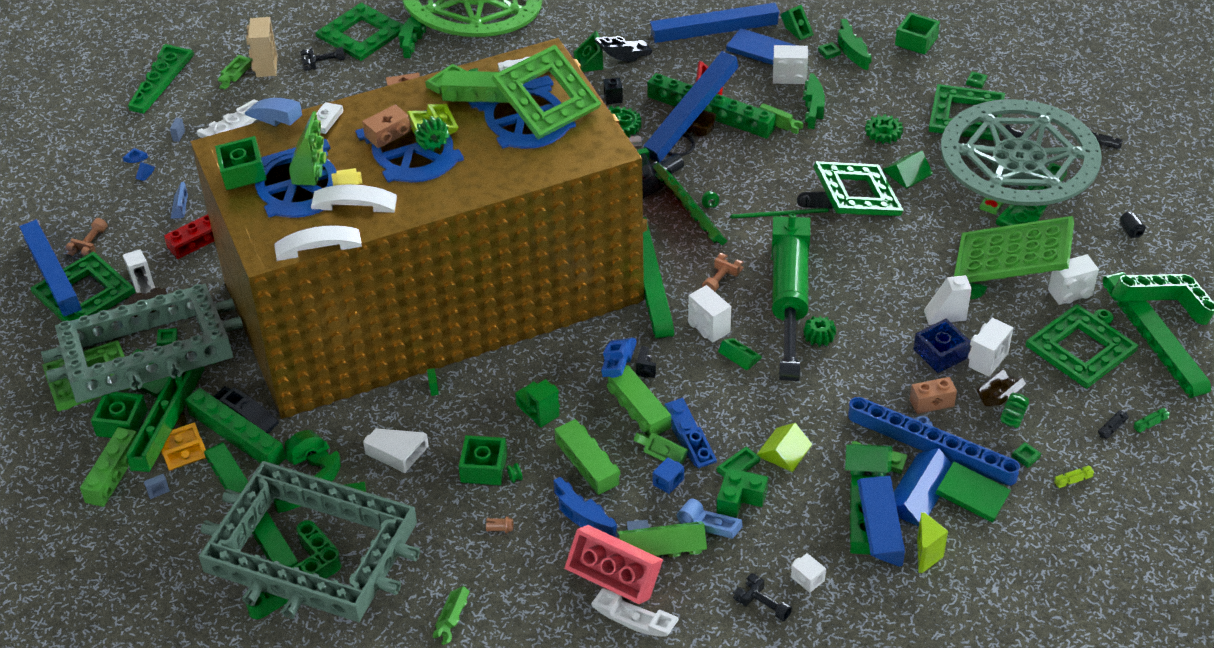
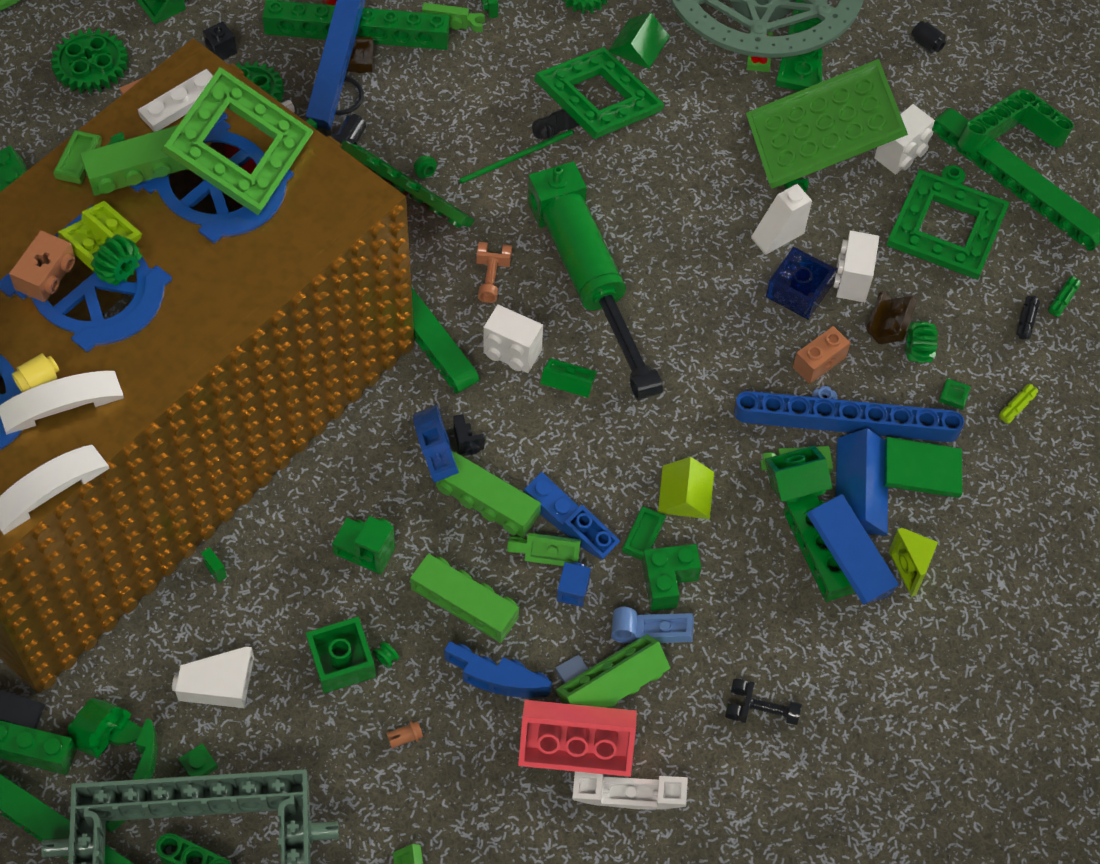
camera: 30 degrees left, 15 degrees up
(808, 572) = (796, 650): white brick -> none
(819, 331) = (649, 312): green gear -> none

